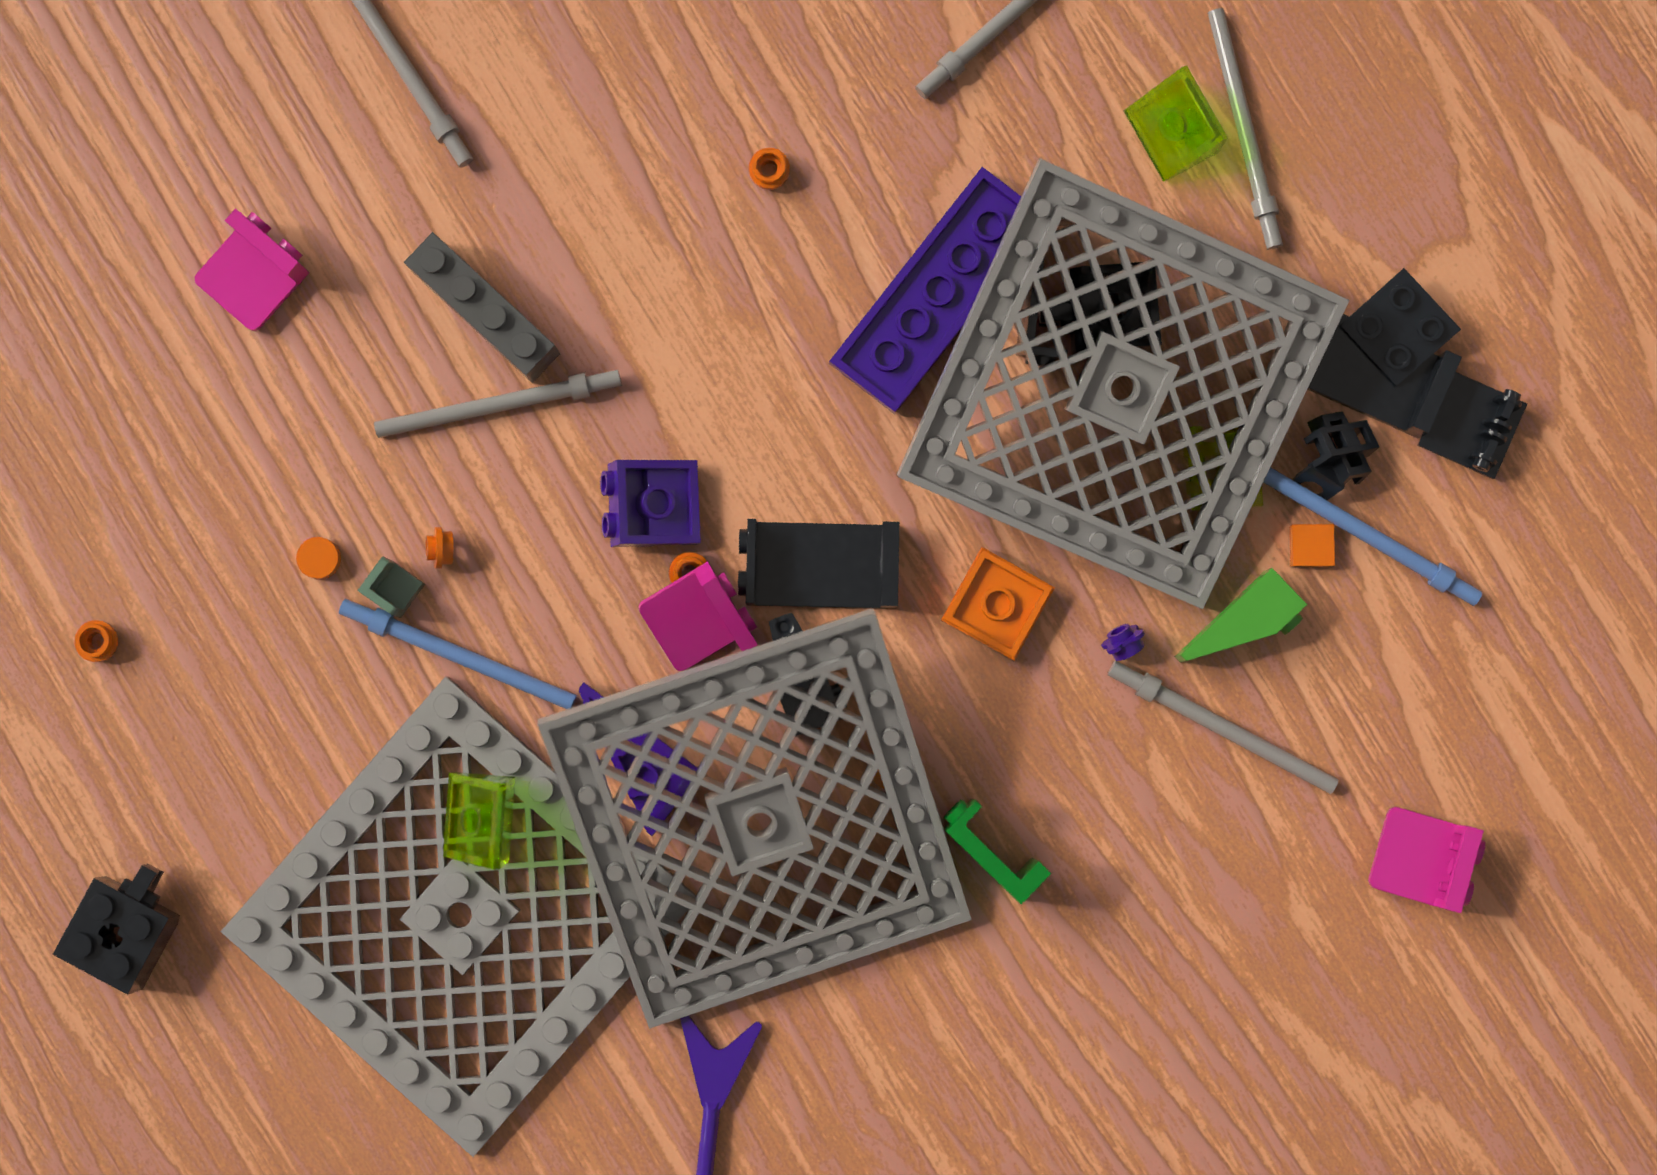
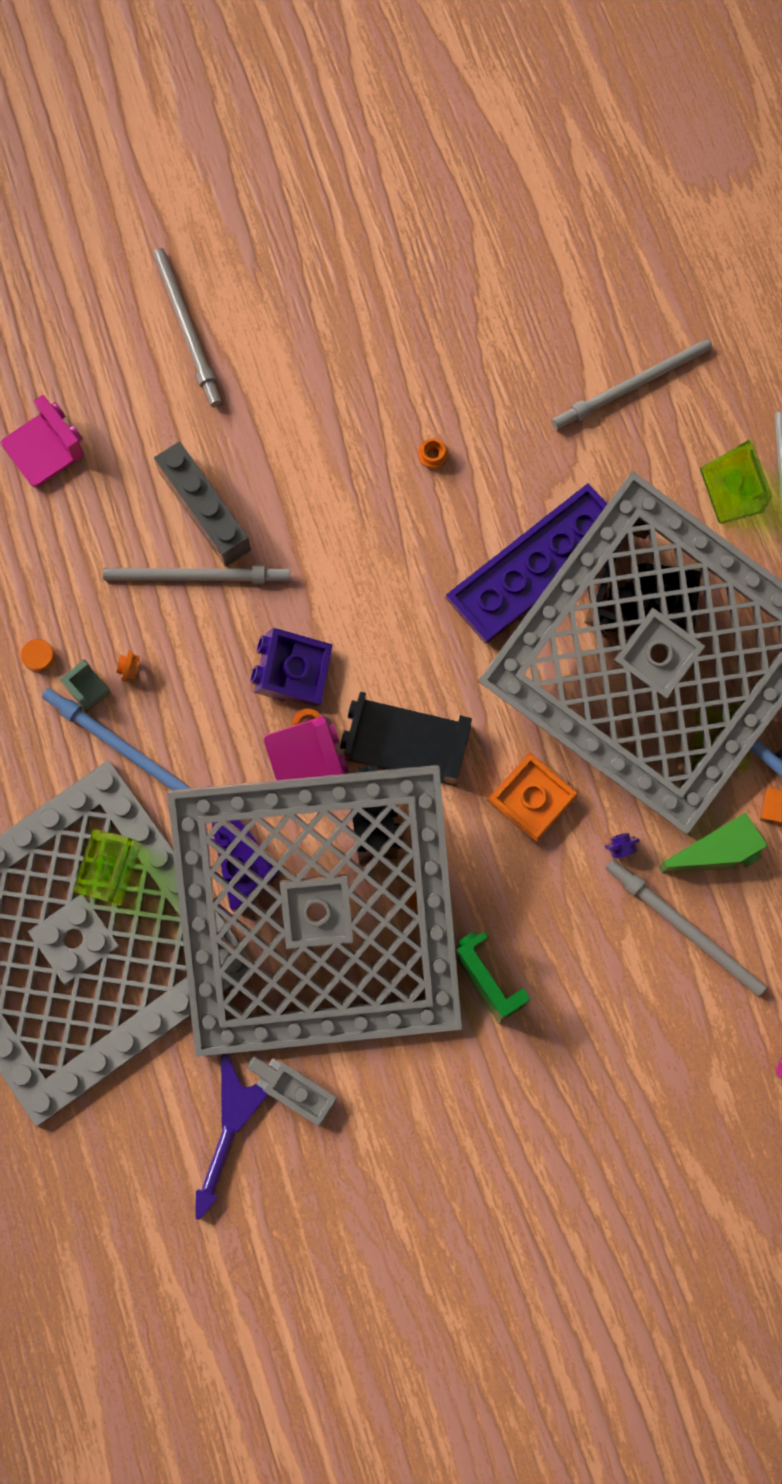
camera: 10 degrees right, 10 degrees down
(779, 1041) = (293, 1089): none -> light grey hinge

